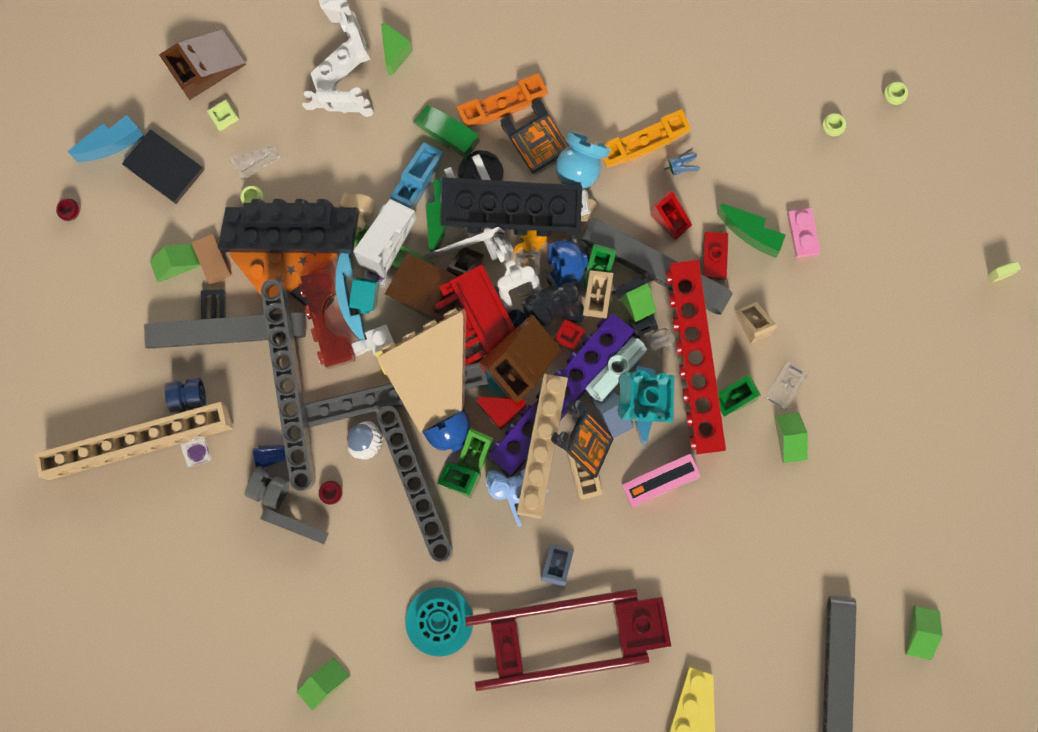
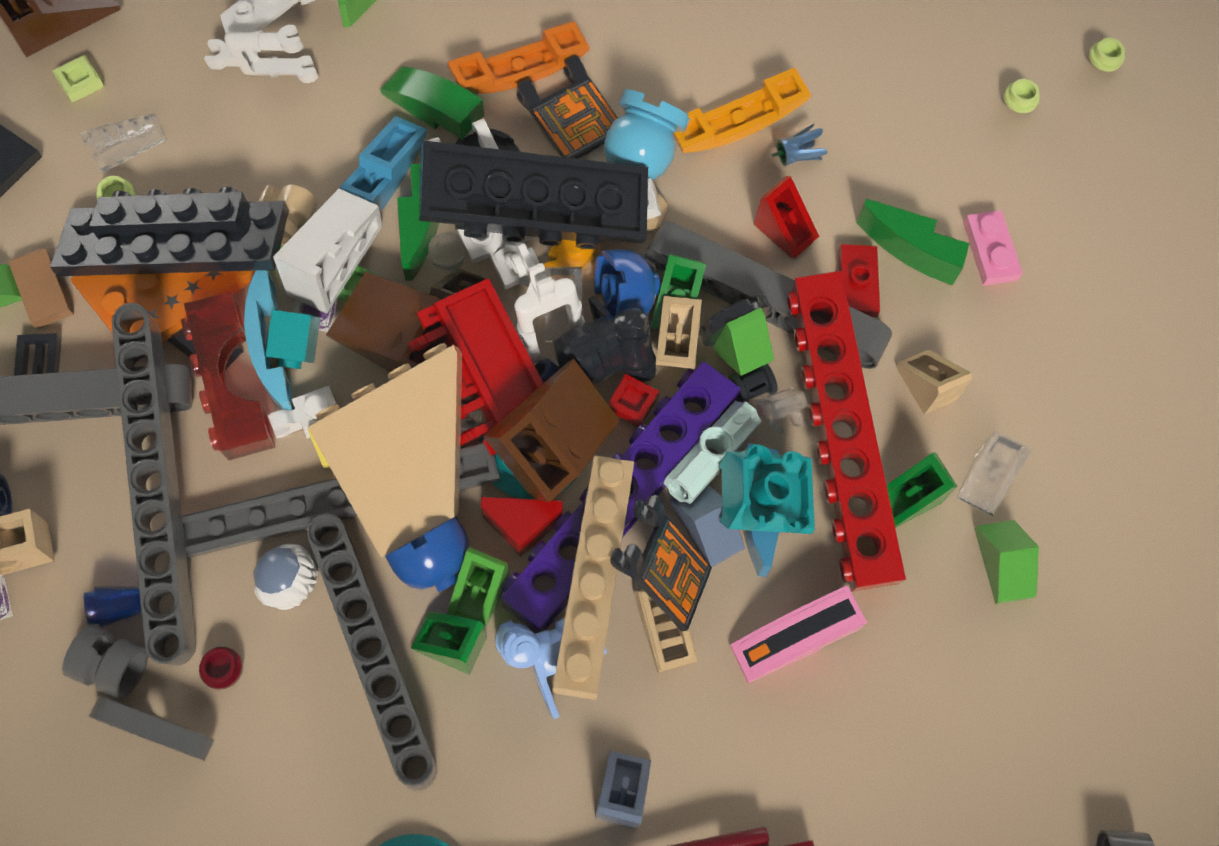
camera: 15 degrees left, 10 degrees down
(464, 243) = (460, 255): white sticker -> none

